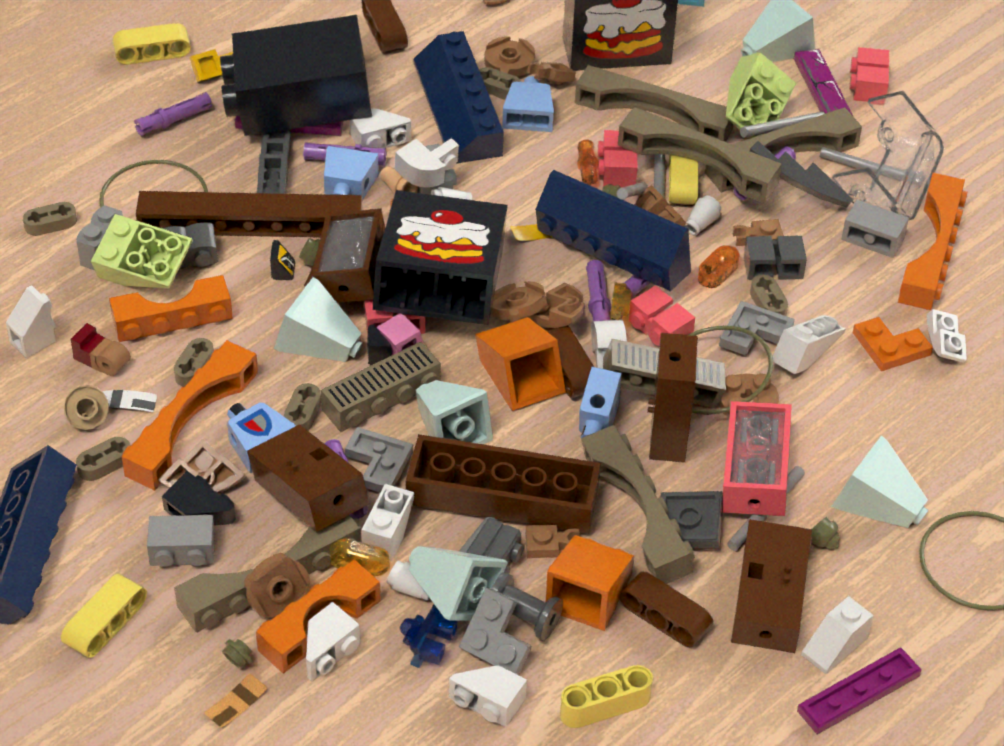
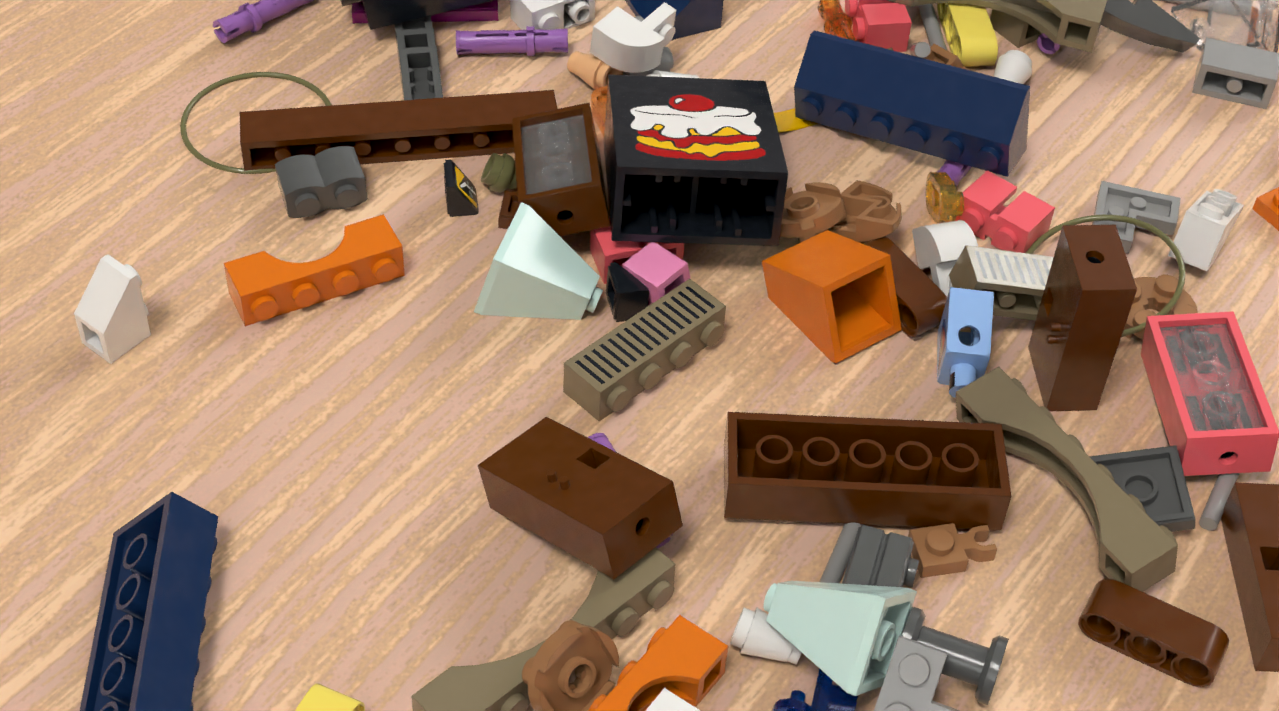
camera: 10 degrees left, 0 degrees up
(50, 218) = (114, 163): dark tan beam -> none
(86, 407) = (216, 426): tan plate -> none
(92, 234) = (194, 182): light grey brick -> none
(98, 351) = (220, 342): leg -> none
(101, 458) = (255, 501): dark tan beam -> none
(131, 400) = (274, 409): sticker -> none
(139, 254) = (257, 197): yellowish green slope -> none
(181, 540) = (402, 616): light grey brick -> none
(189, 360) = (355, 341): dark tan beam -> none
(195, 497) = (415, 555): black slope -> none
(207, 463) = (411, 505): medium nougat brick -> none
(223, 375) = (329, 488): orange arch -> none
(252, 427) = (476, 431): light blue torso -> none
(307, 410) = (529, 392): dark tan beam -> none
(349, 171) = (525, 61): light blue torso -> none
(371, 557) = (700, 606): clear yellow plate -> none
(383, 453) = (675, 445): light grey plate -> none
(388, 519) = (709, 550): white slope -> none
(455, 412) = (762, 372): light aqua slope -> none
(589, 580) = (1037, 602): orange slope -> none
(599, 304) = (913, 203): medium lavender pin -> none
(723, 269) = (1045, 137): clear orange beam -> none
(758, 228) = (1092, 92): medium nougat plate -> none
(774, 296) = (1128, 168): dark tan beam -> none
(784, 252) = (1137, 115): dark grey piece -> none

